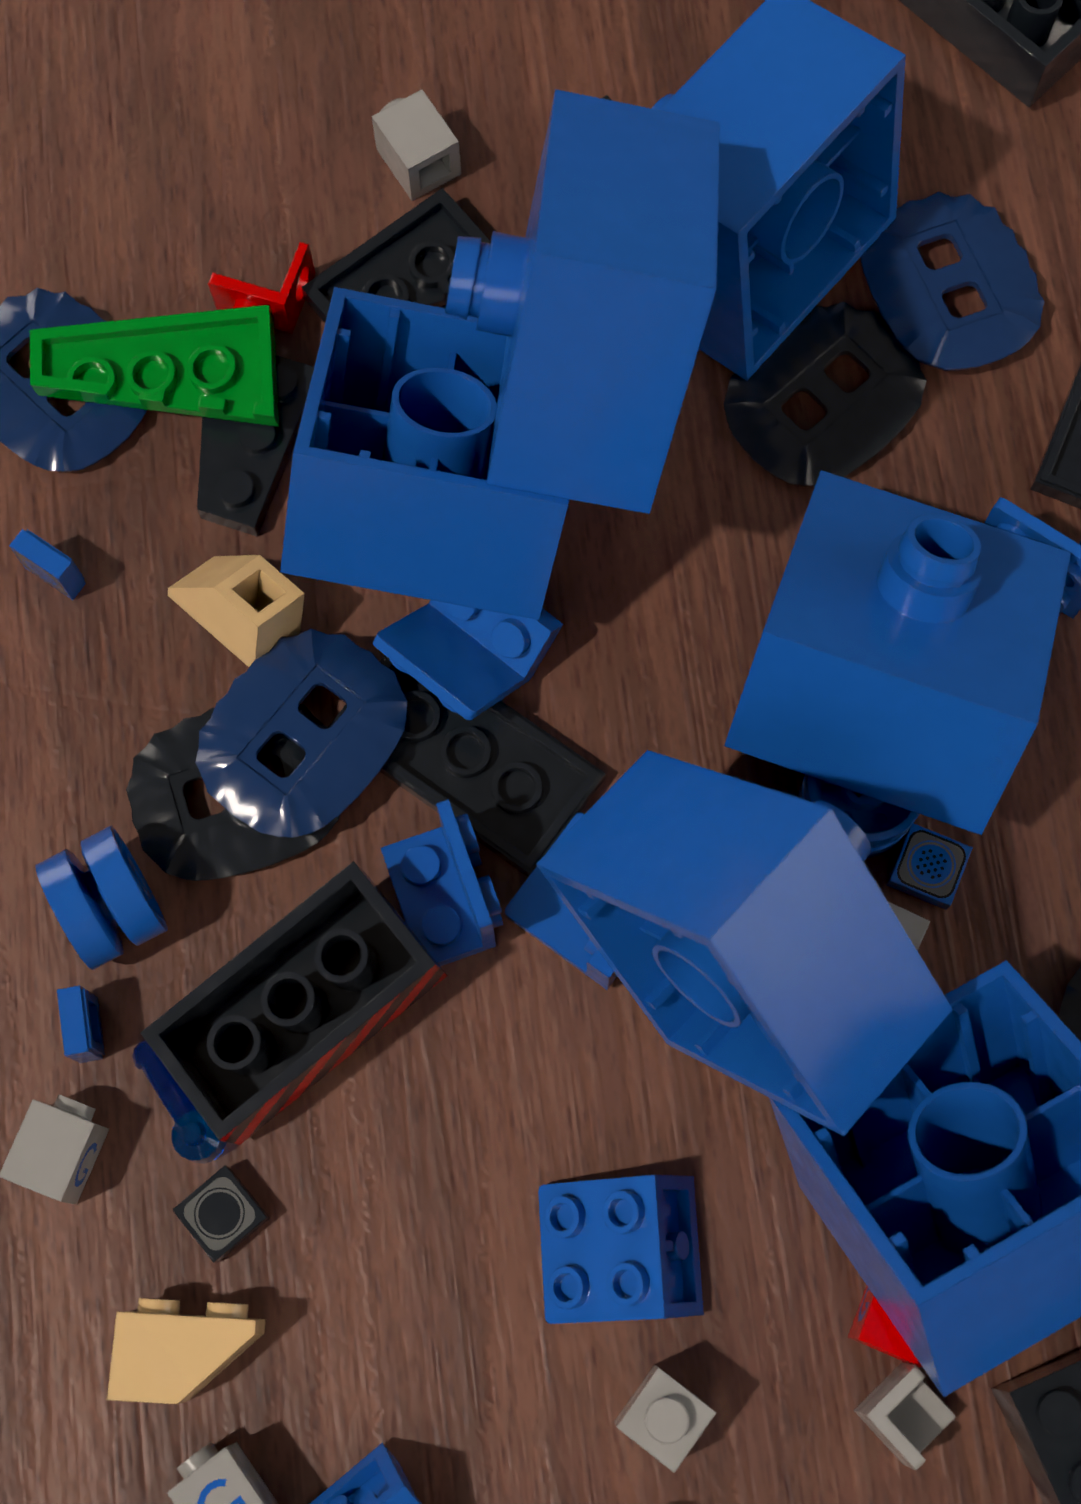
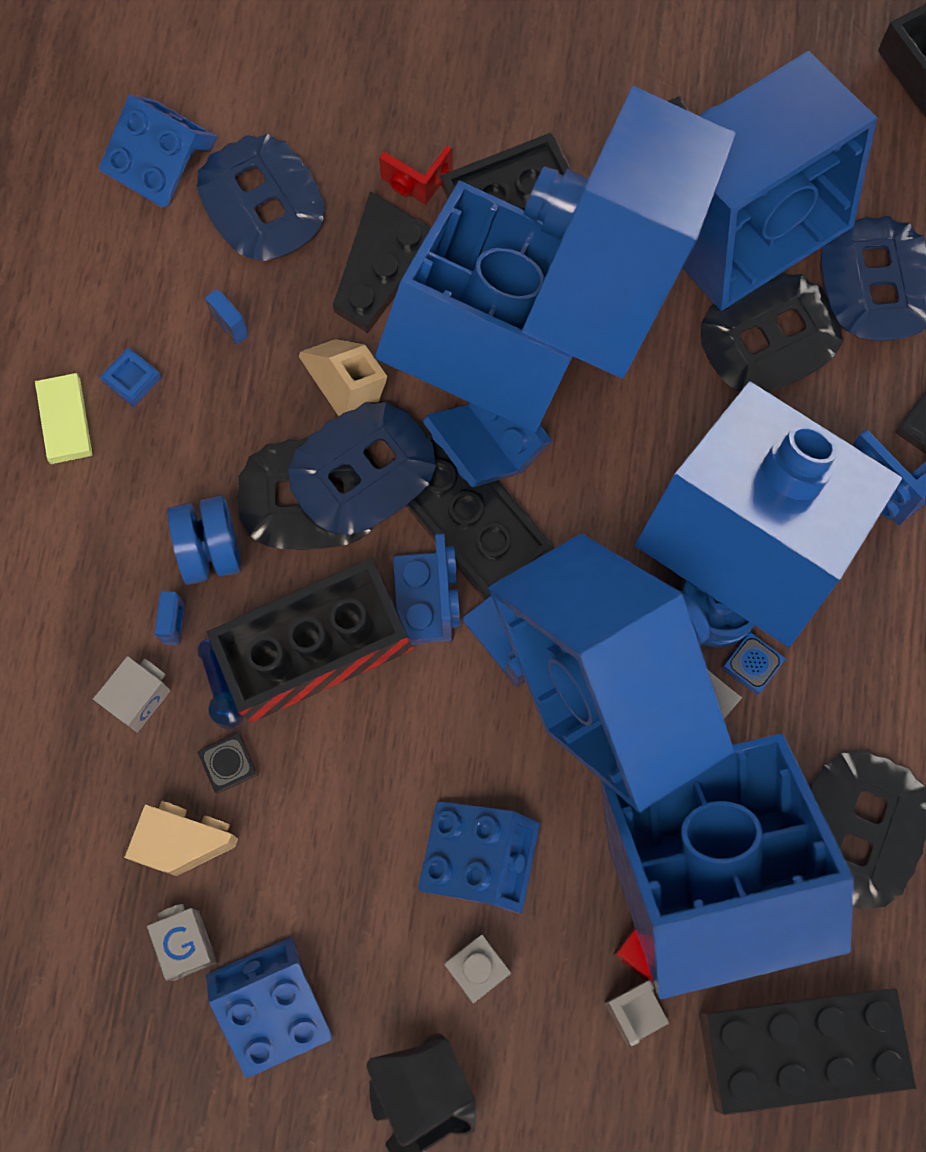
camera: 15 degrees right, 0 degrees up
(177, 363) = (342, 205): green wing -> none
(416, 144) = (542, 99): light grey brick -> none

